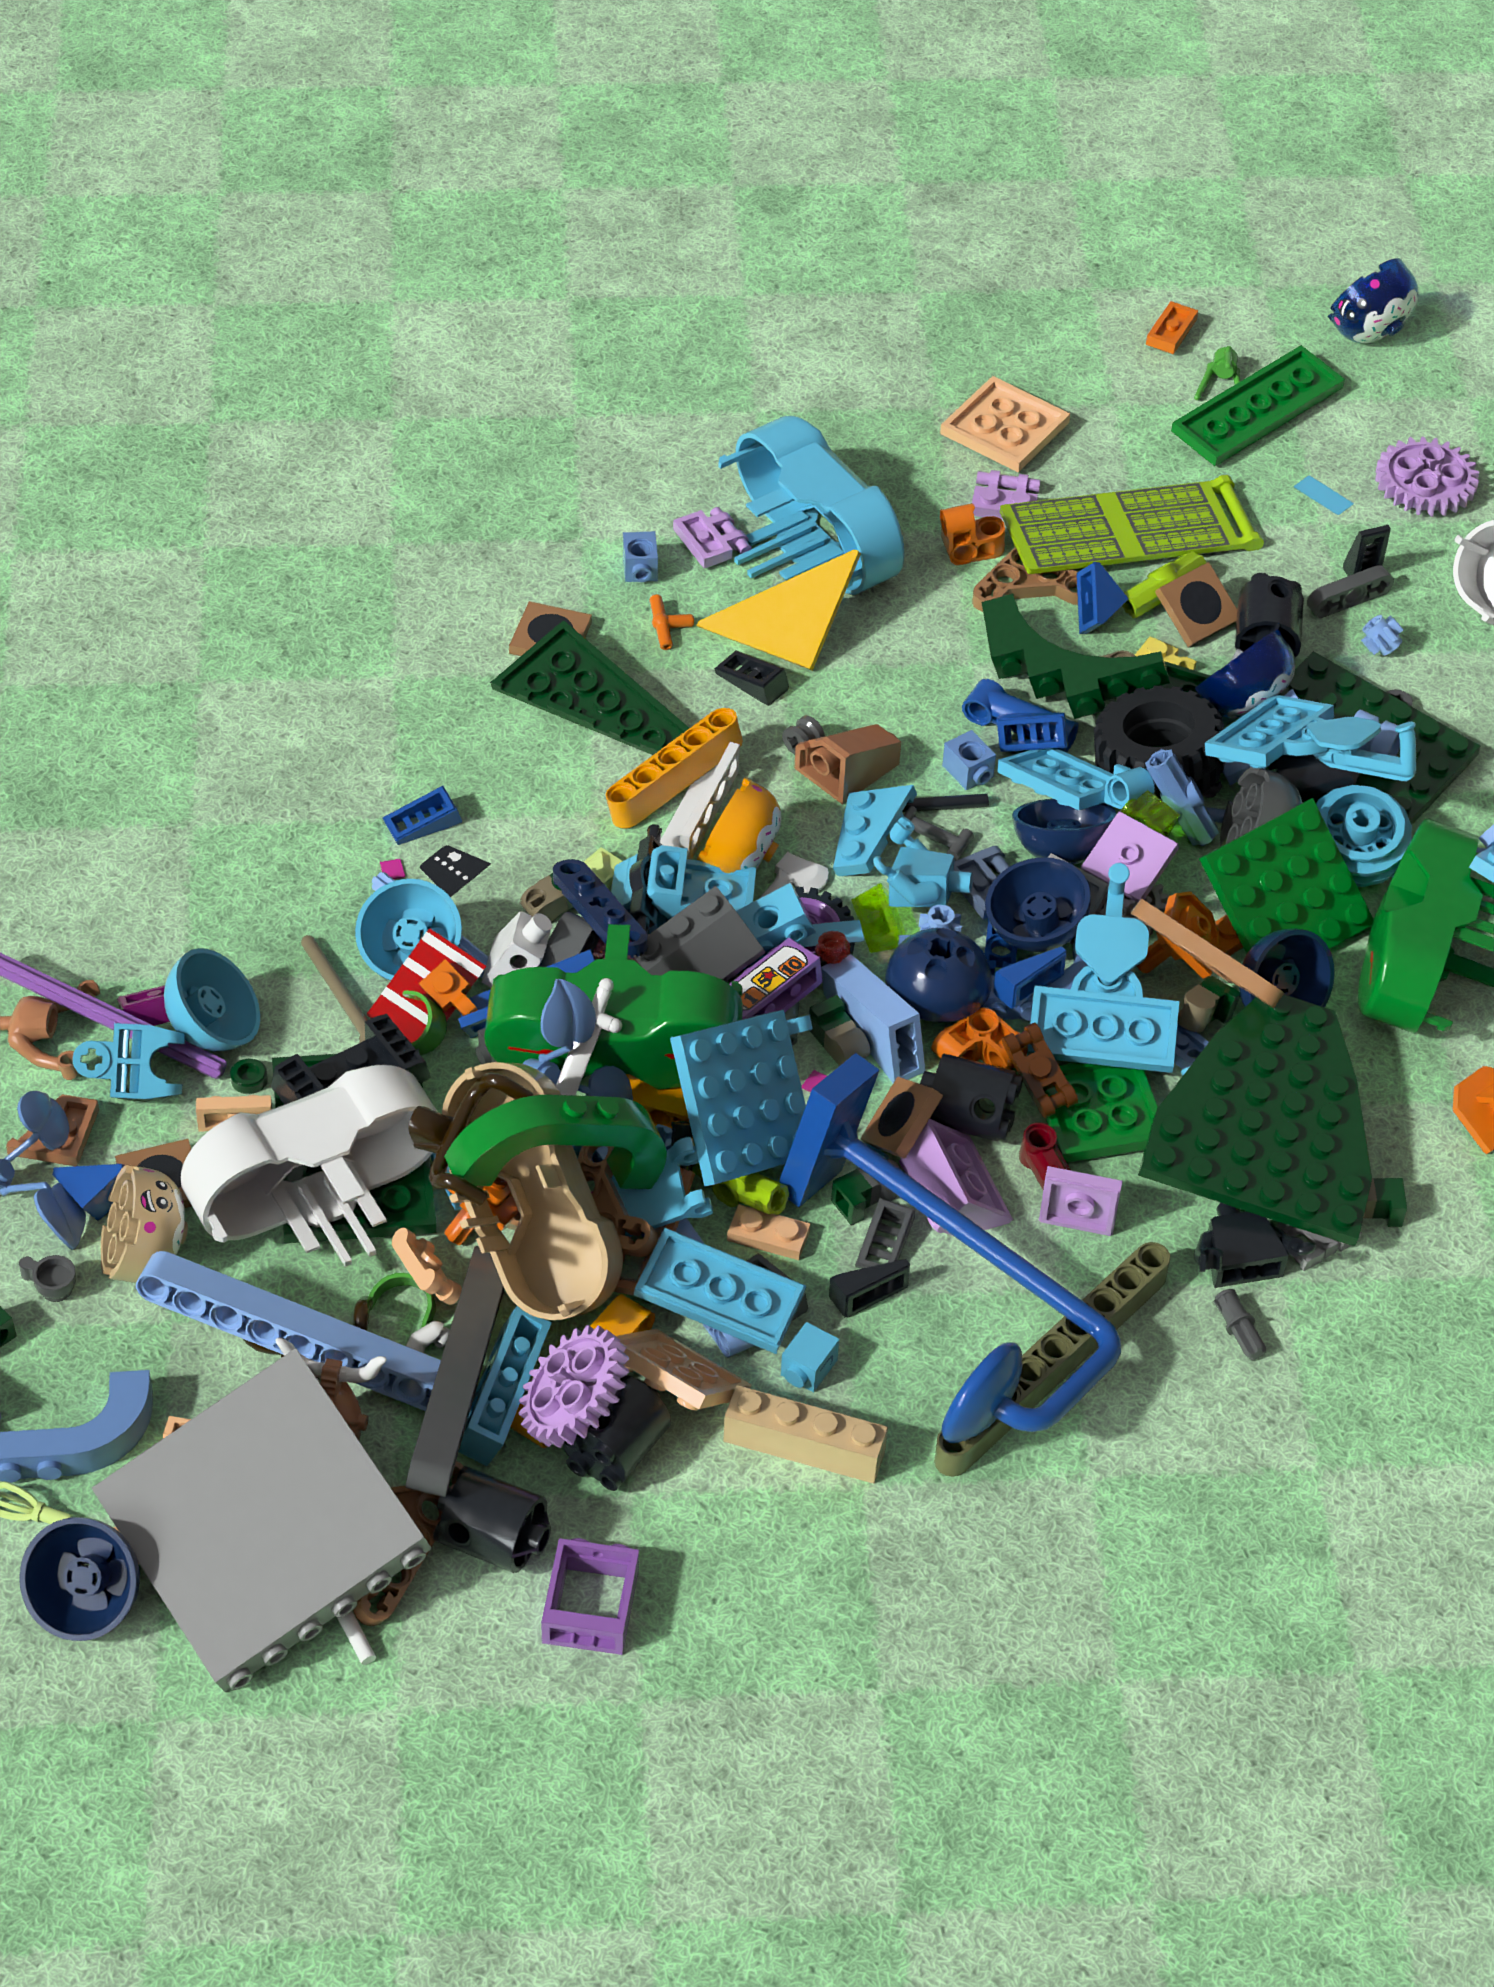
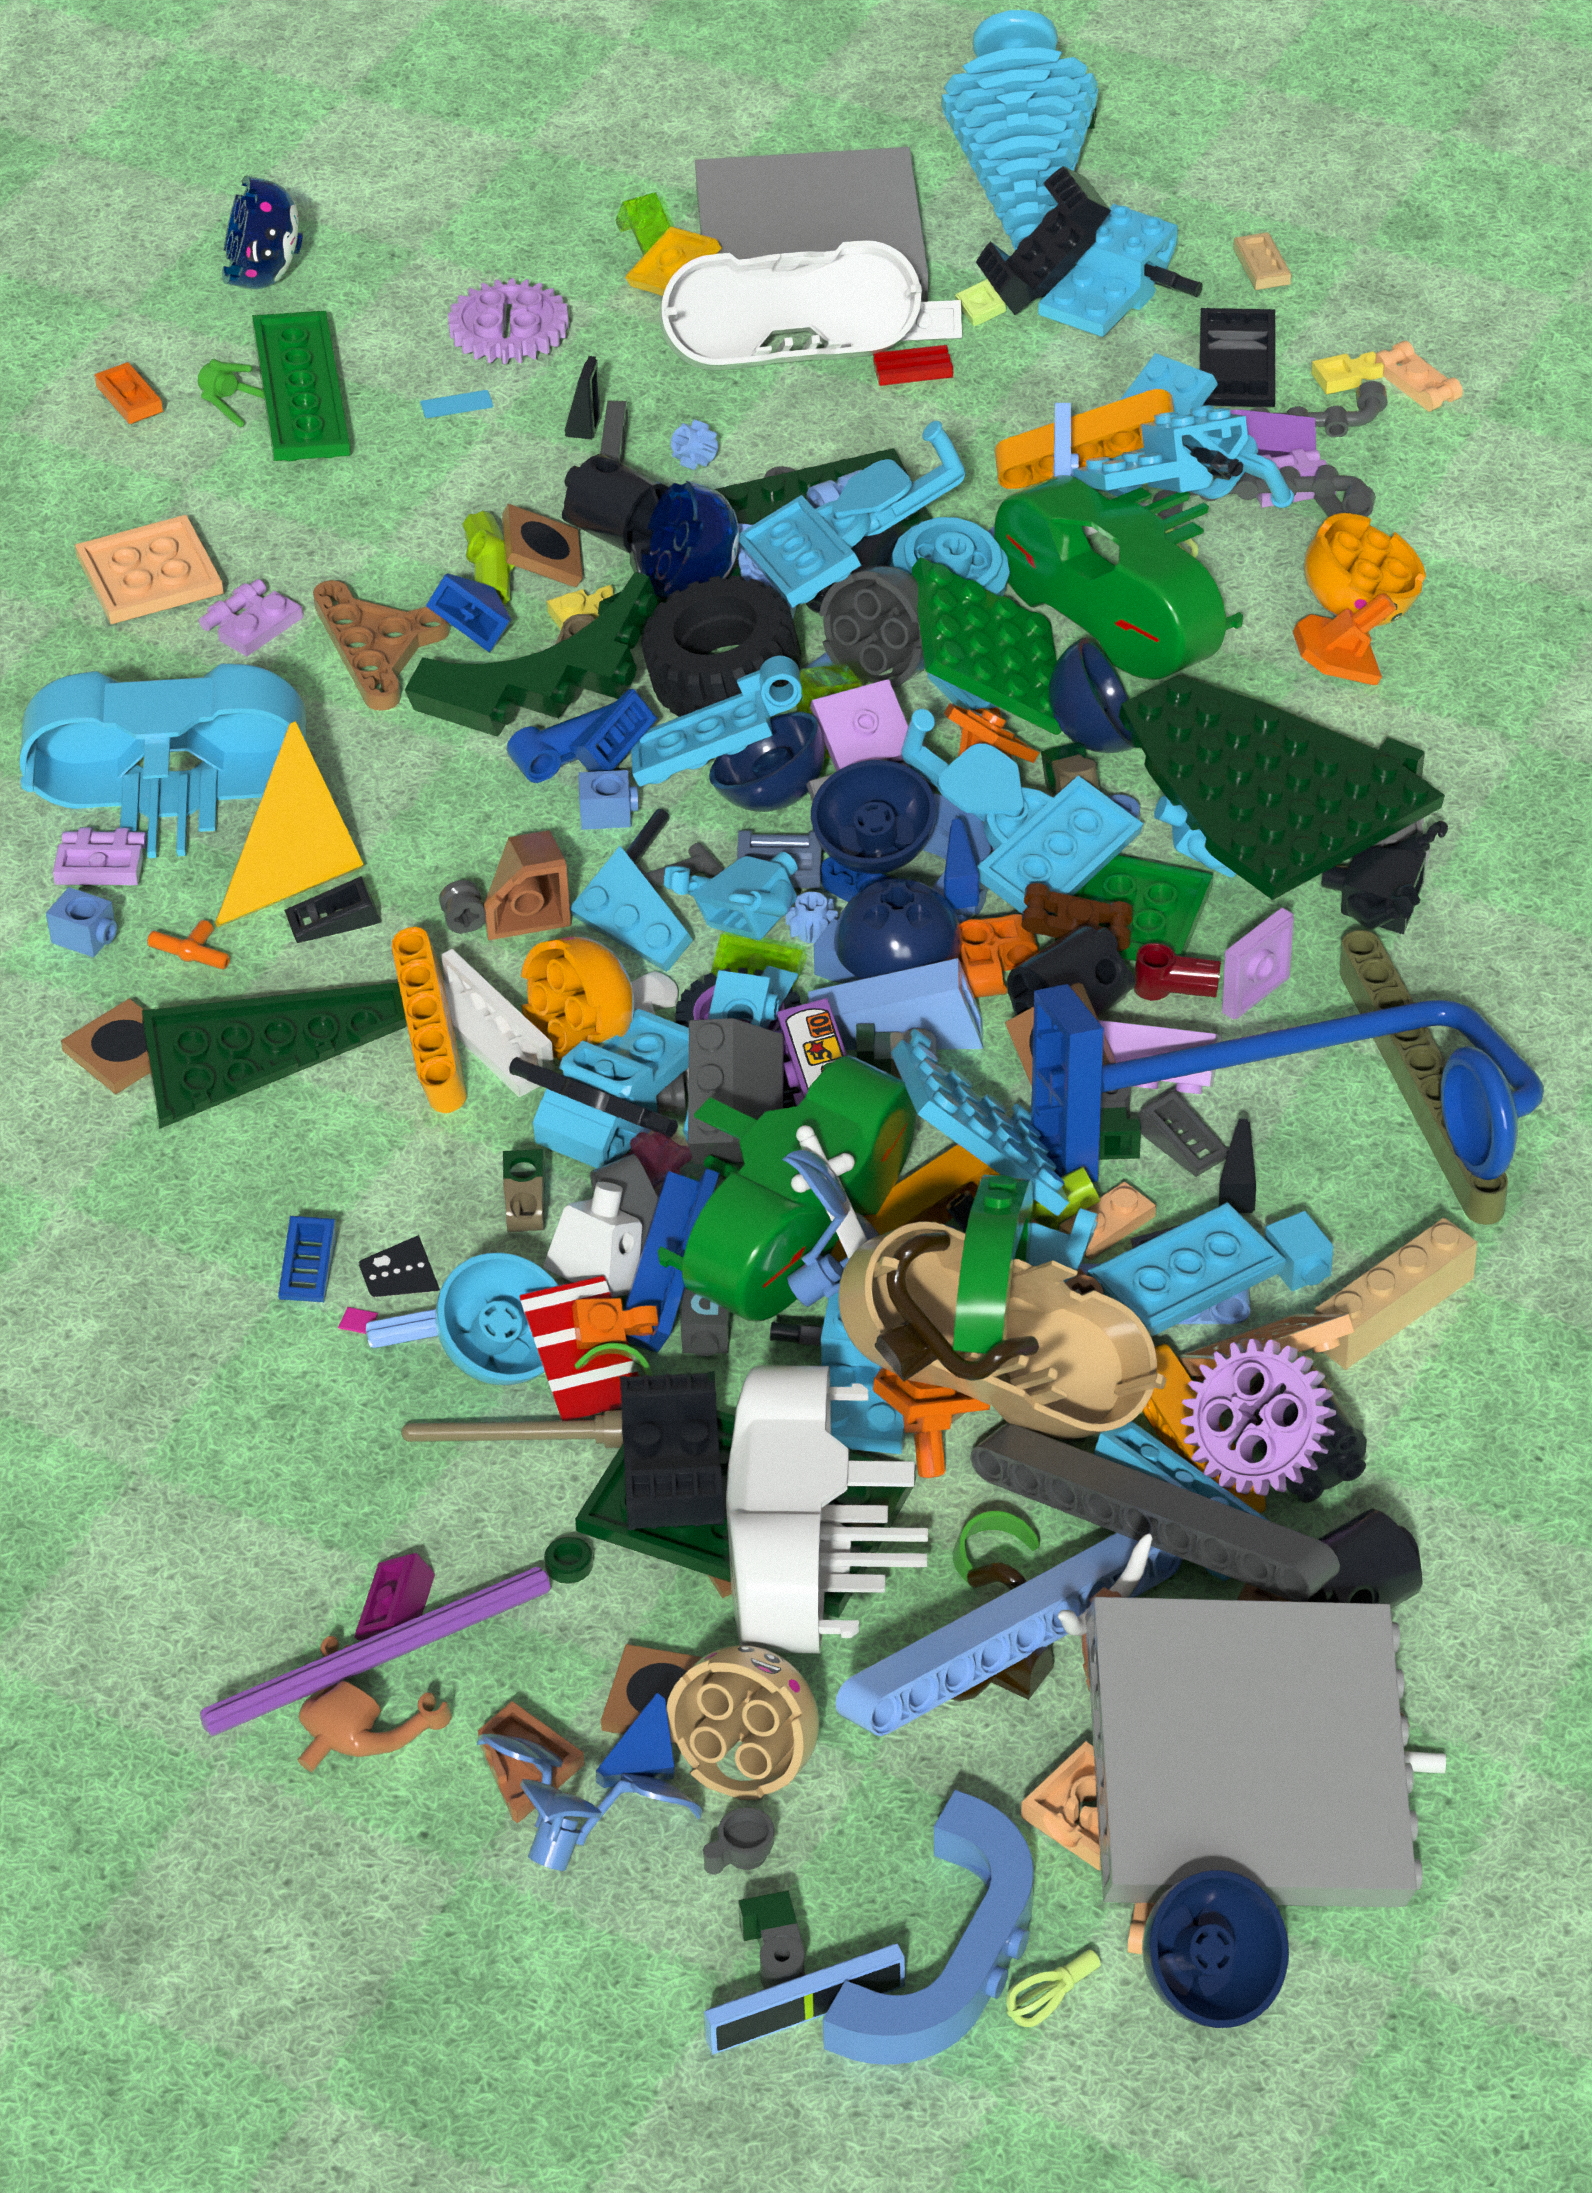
camera: 55 degrees left, 5 degrees down
(115, 1056) = (488, 1643): medium azure piece -> none
(211, 1001) = (463, 1539): medium azure piece -> none
(216, 1109) = (624, 1586): light nougat plate -> none
(425, 1266) = (975, 1499): light nougat plate -> none
(430, 1333) = (1055, 1543): white arm -> none
(587, 1630) = (1533, 1531): medium lavender window -> none
(597, 903) = (609, 1141): dark blue piece -> none
(603, 865) = (506, 1138): yellowish green tile -> none
(832, 947) = (797, 991): clear red plate -> none
(971, 539) = (297, 655): orange piece -> none
(1128, 526) = (383, 547): lime flag -> none
(1183, 796) = (805, 649): medium blue piece -> none
(1207, 954) = (1055, 720): medium nougat beam -> none
(1240, 1323) = (1467, 931): dark grey axle -> none

